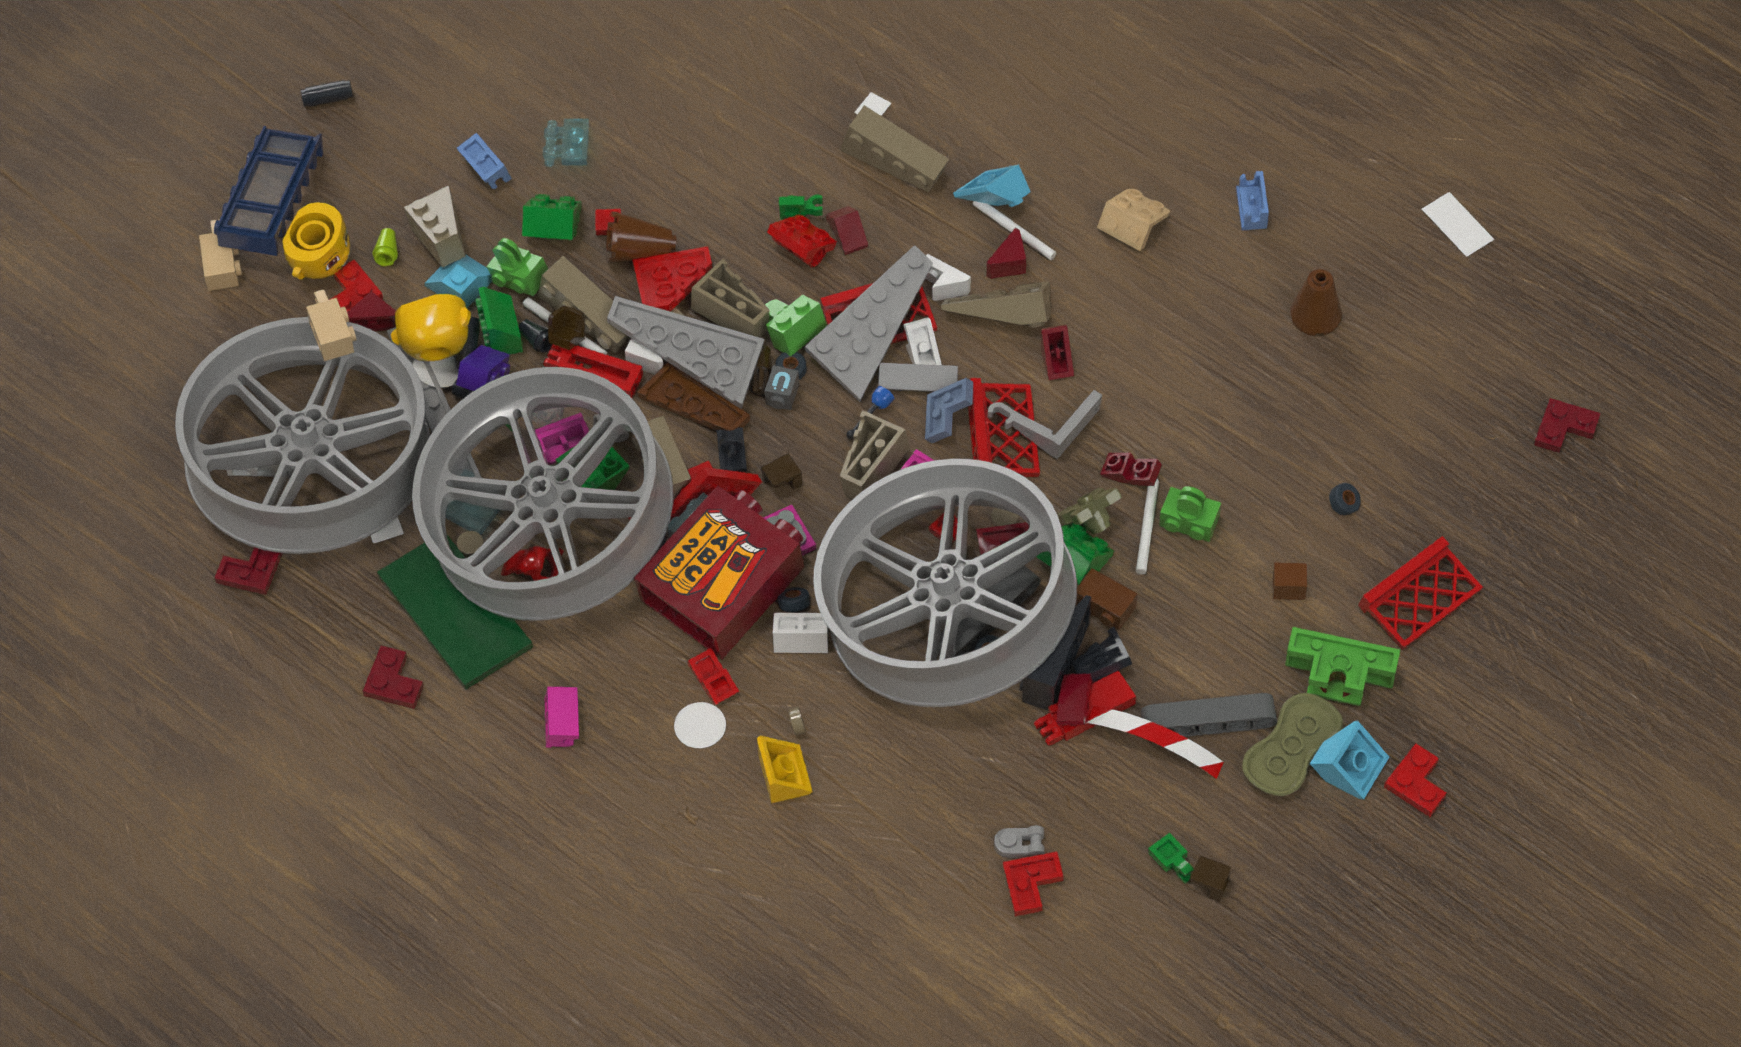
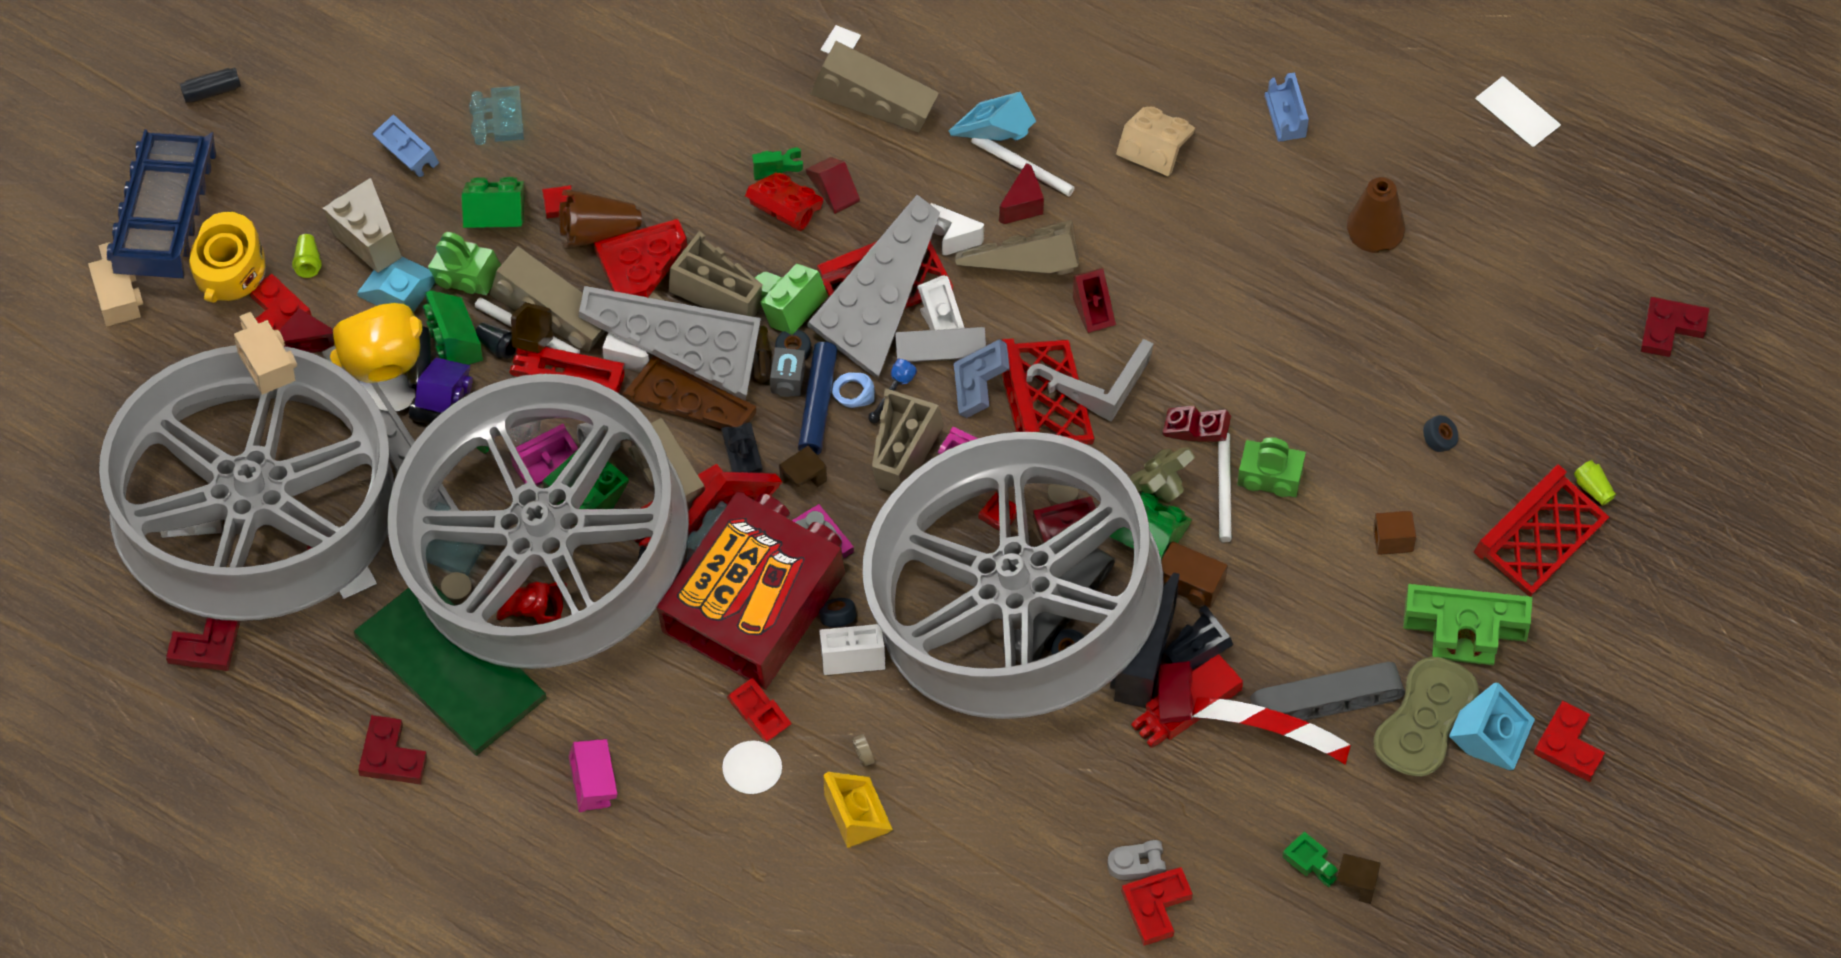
camera: 10 degrees left, 0 degrees up
(805, 412) = (818, 396): none -> dark blue piece
(845, 417) = (865, 398): none -> light blue piece
(1474, 556) = (1594, 482): none -> lime cone

